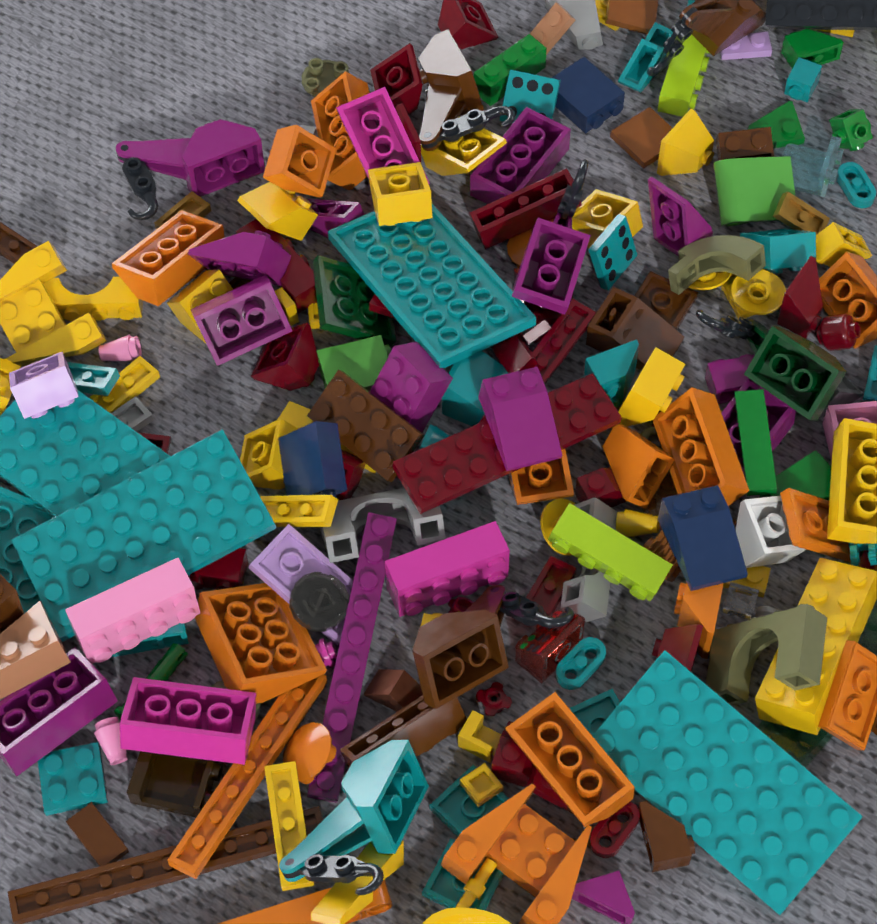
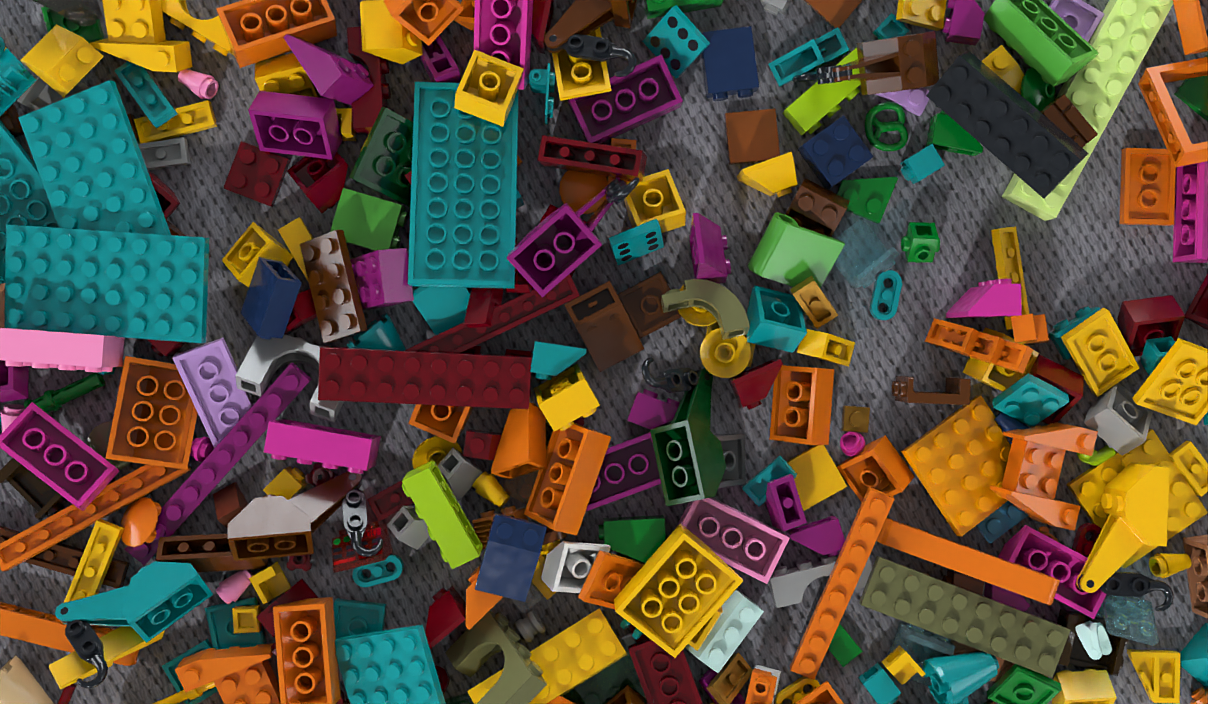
camera: 35 degrees right, 30 degrees up
(43, 386) = (89, 103): lavender slope -> none
(223, 394) = (256, 174): none -> dark red plate
(301, 510) = (232, 324): yellow plate -> none
(319, 601) = (212, 413): clear smoke tile -> none
(445, 764) = (234, 586): none -> bright pink cone
(446, 186) = (544, 82): none -> teal hinge
(520, 418) = (437, 375): magenta slope -> none
(726, 104) = (835, 152): none -> dark blue brick
(755, 442) = (616, 491): green tile -> none
(759, 68) = (897, 125): none -> green piece
(838, 332) = (762, 425): dark red head -> none

